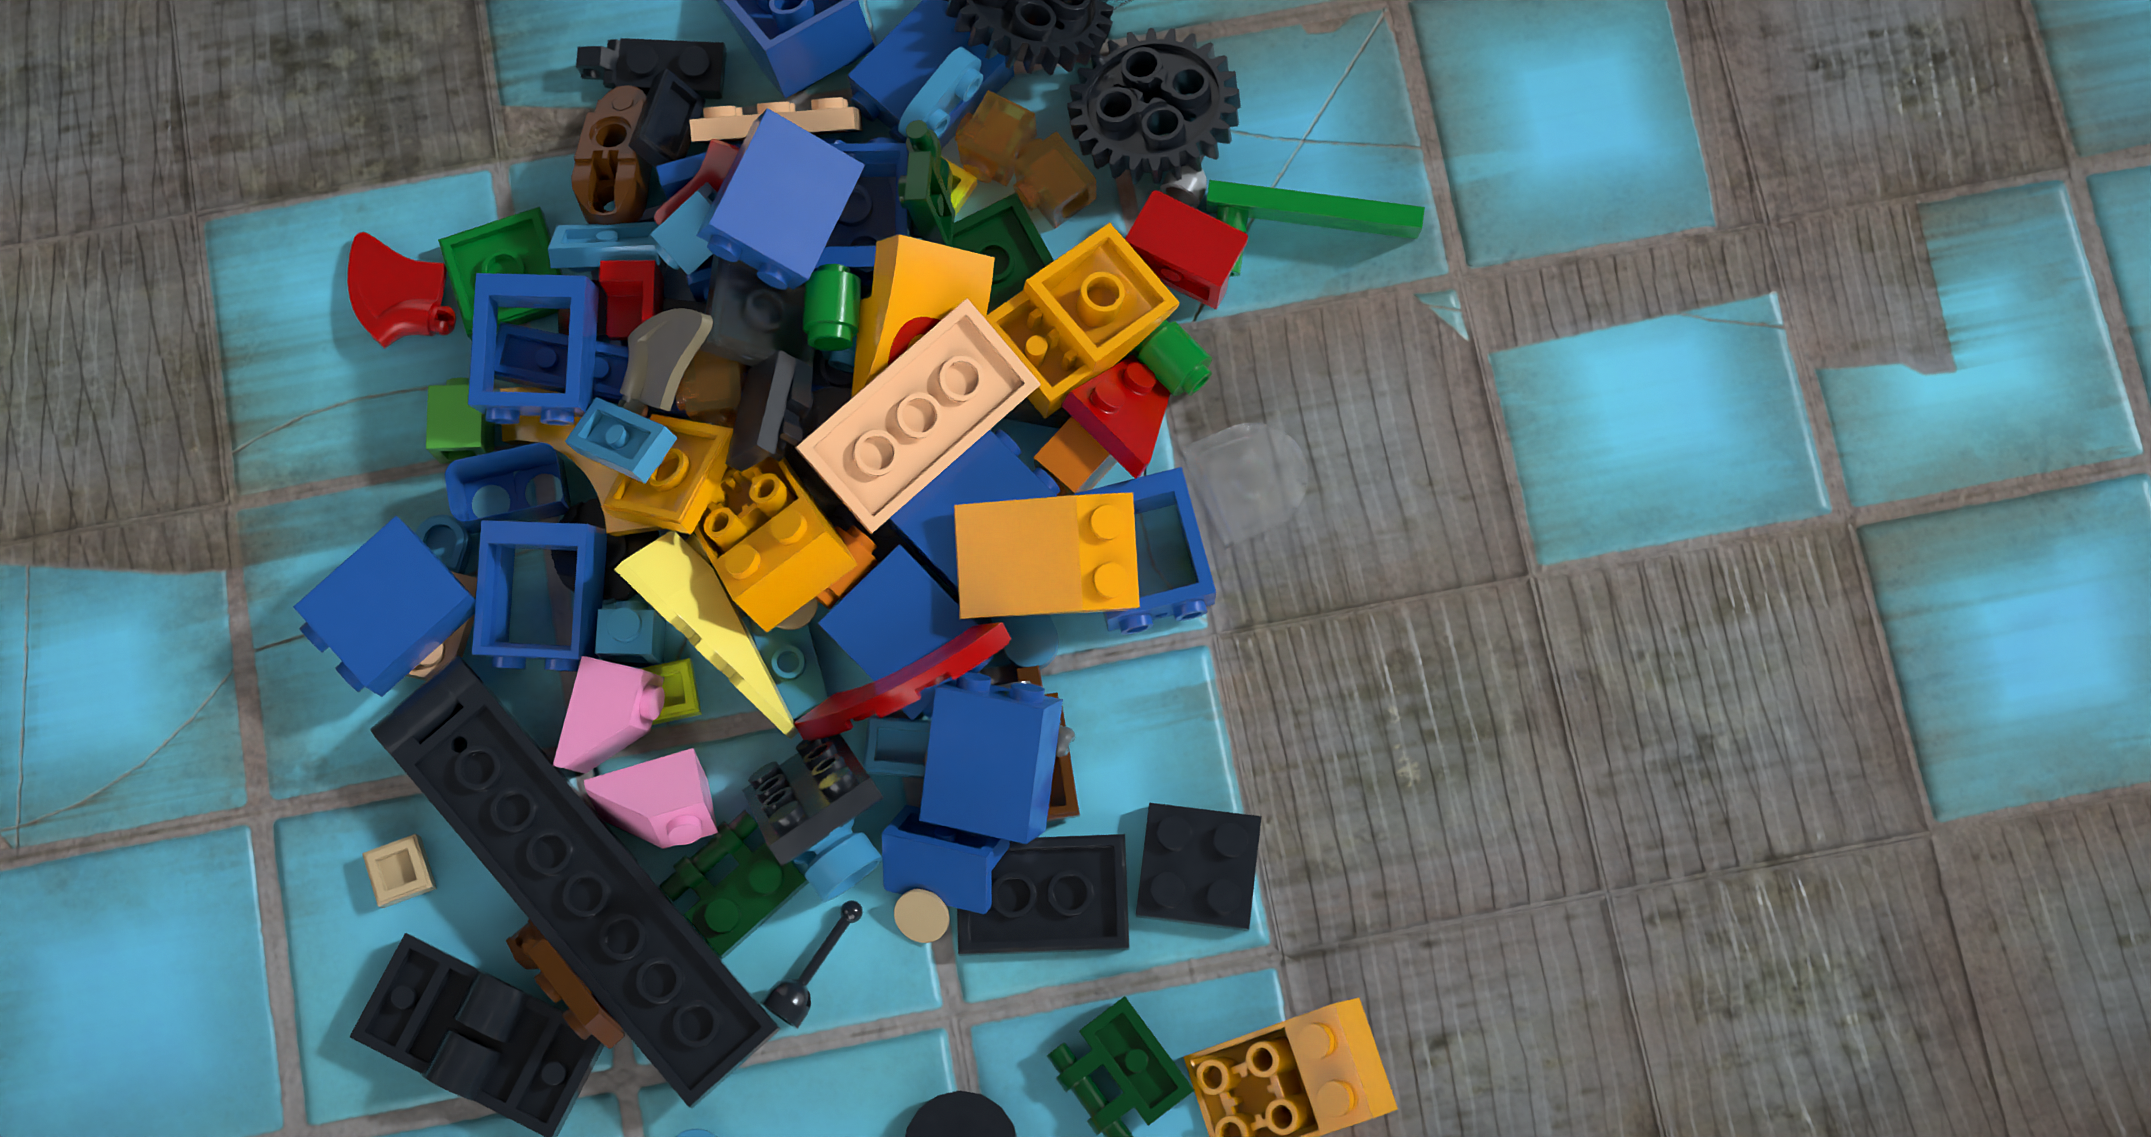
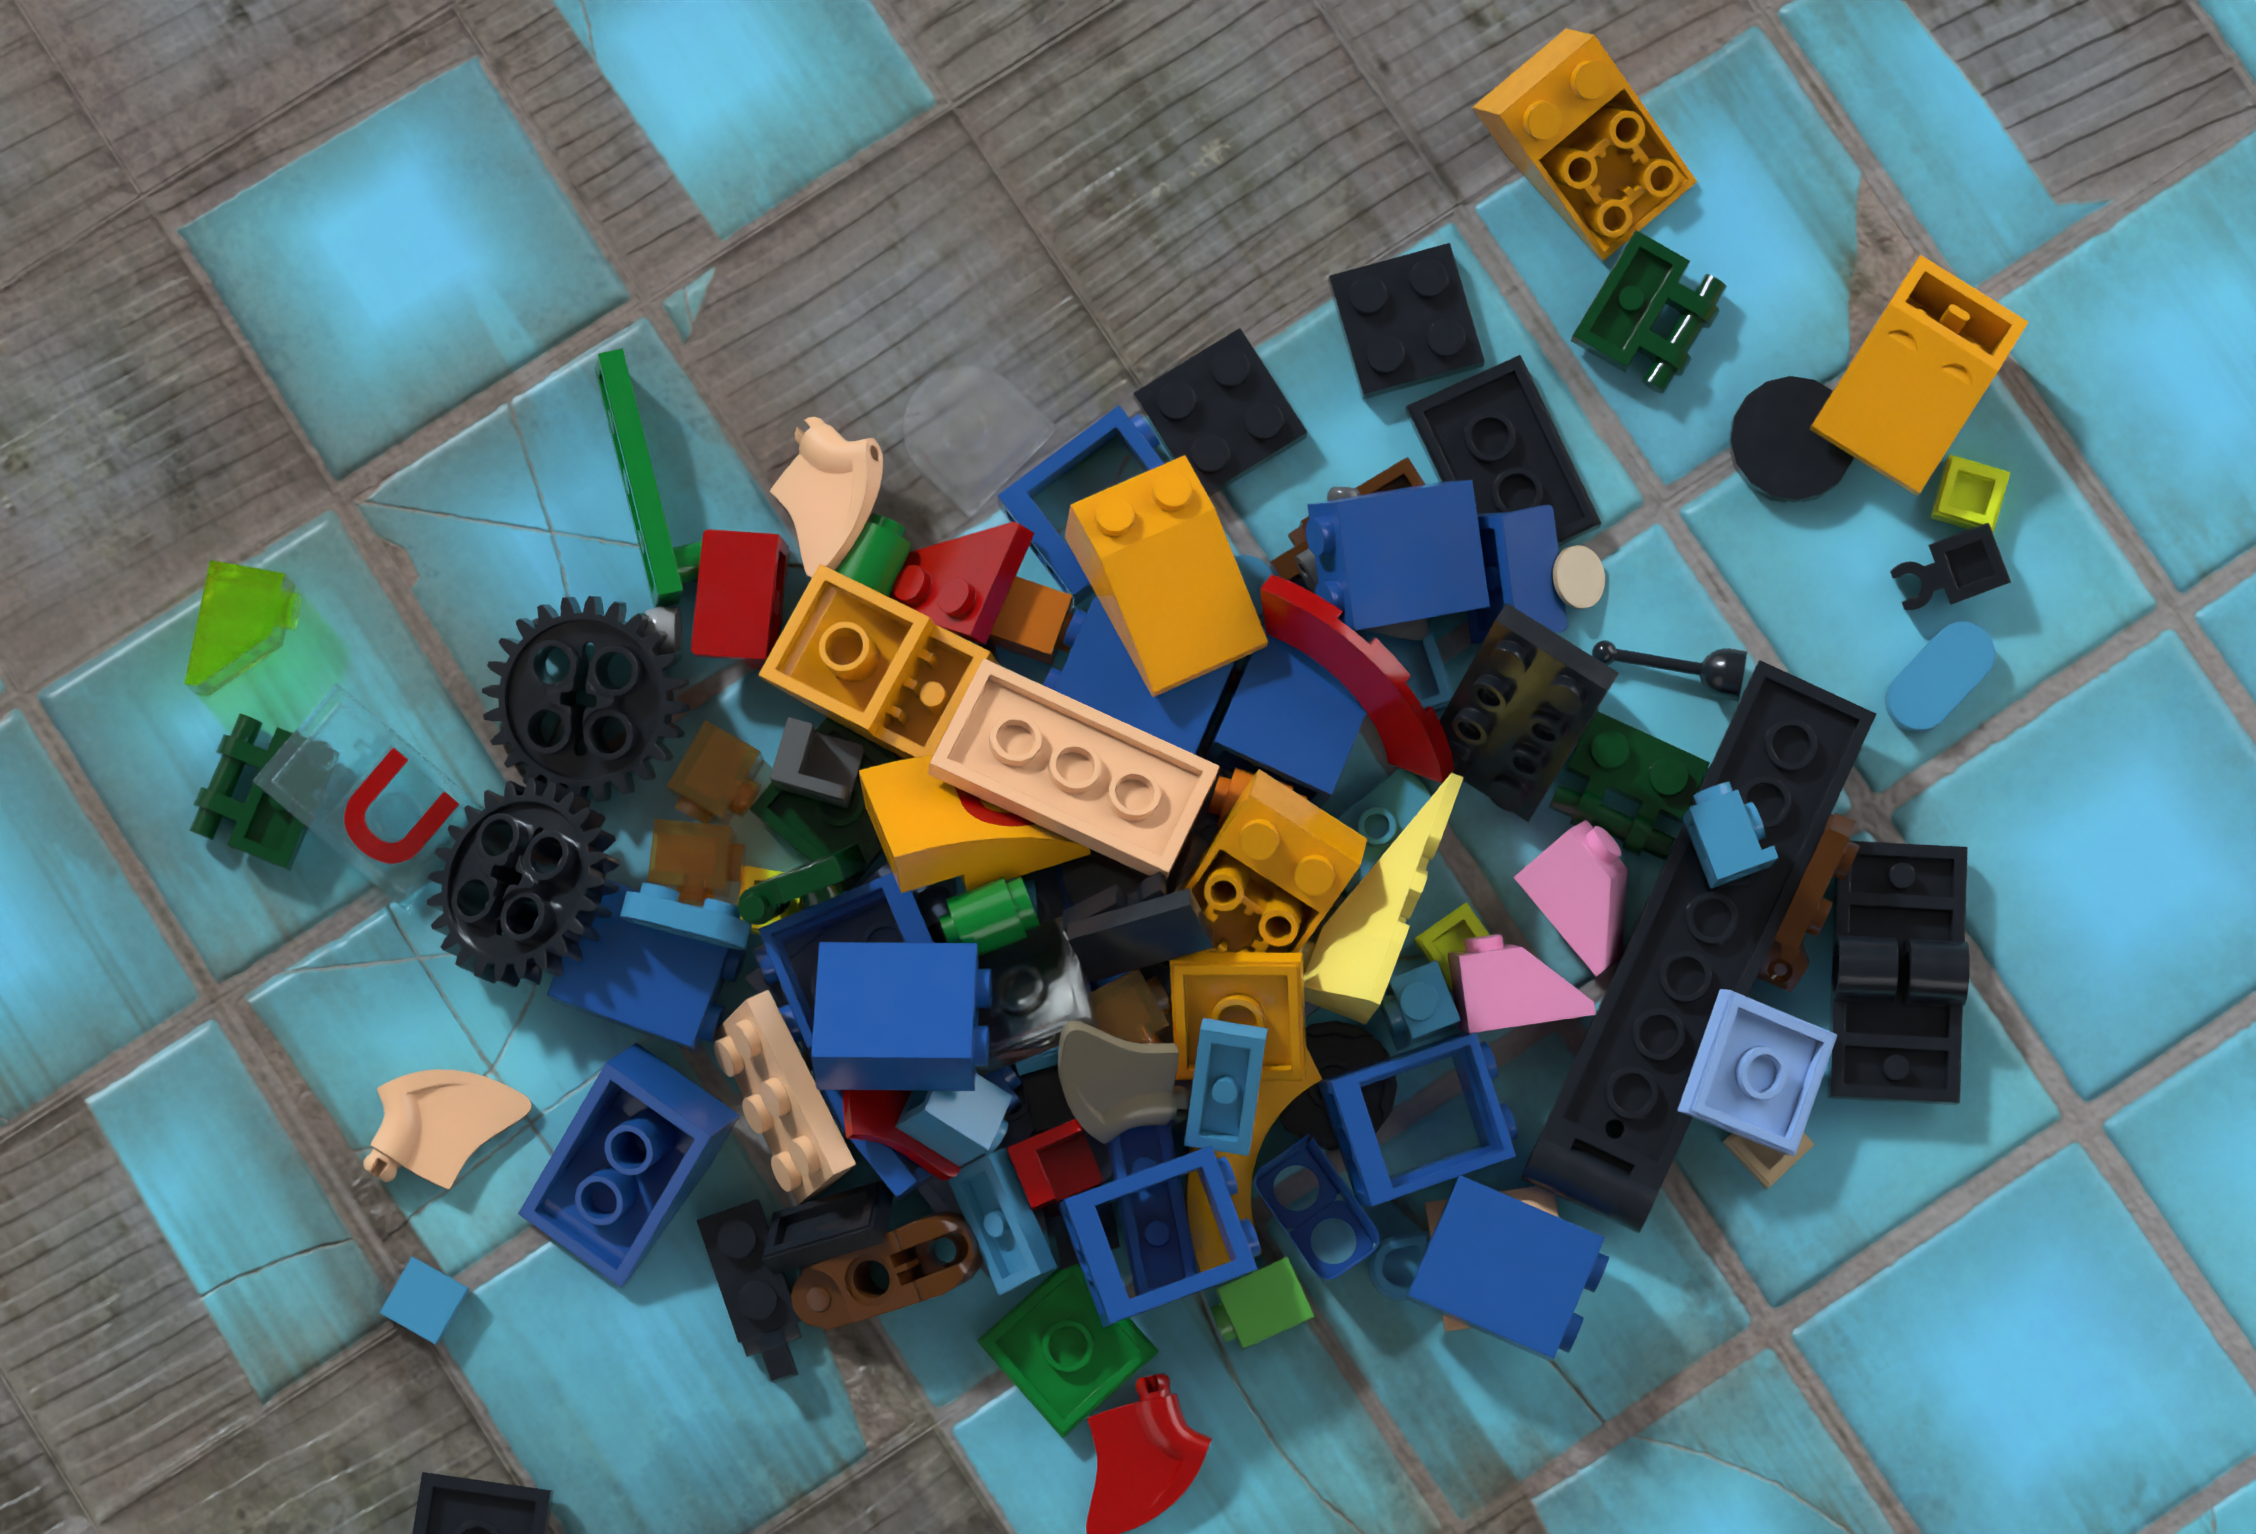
camera: 115 degrees left, 5 degrees up
(445, 875) = (1757, 1072): none -> light blue tile
(636, 927) = (1727, 835): none -> dark azure brick
(1024, 243) = (816, 764): none -> dark grey panel
(1182, 682) = (1221, 412): none -> black plate
(1241, 346) = (829, 492): none -> light nougat arm

